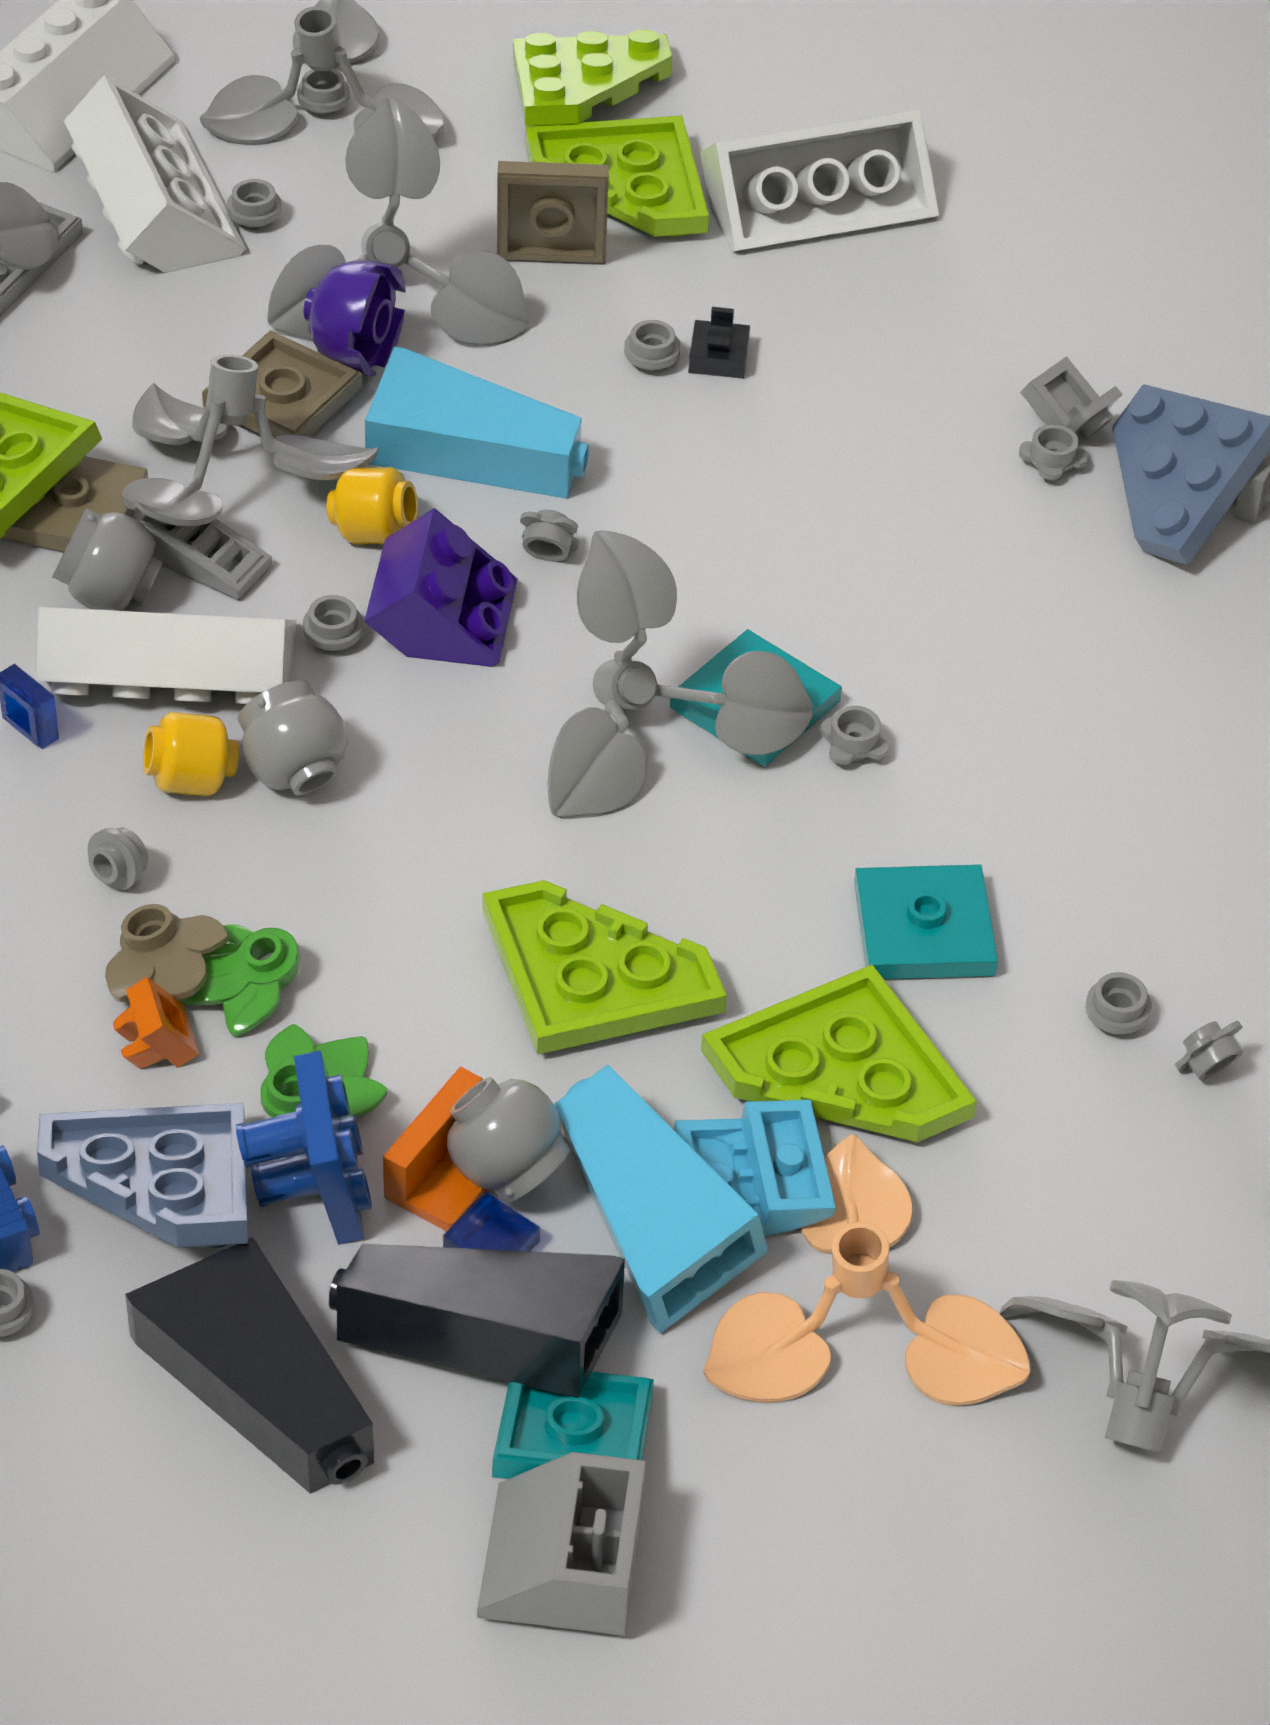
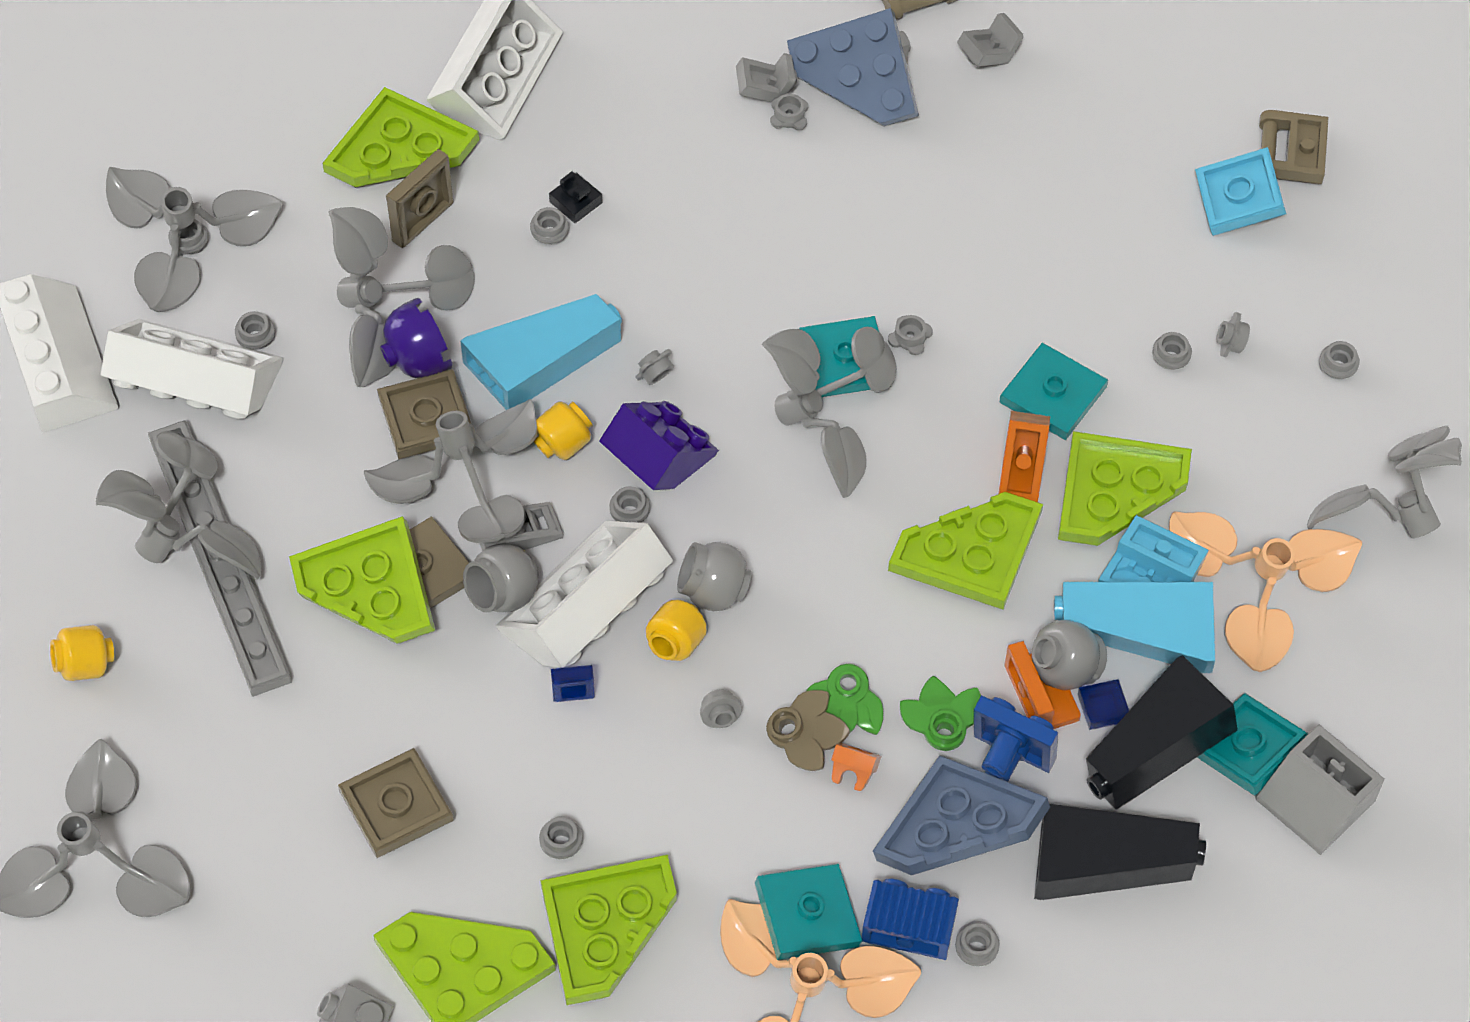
camera: 50 degrees left, 10 degrees up
(569, 75) = (297, 107): lime plate -> none
(786, 936) = (1024, 454): none -> orange slope

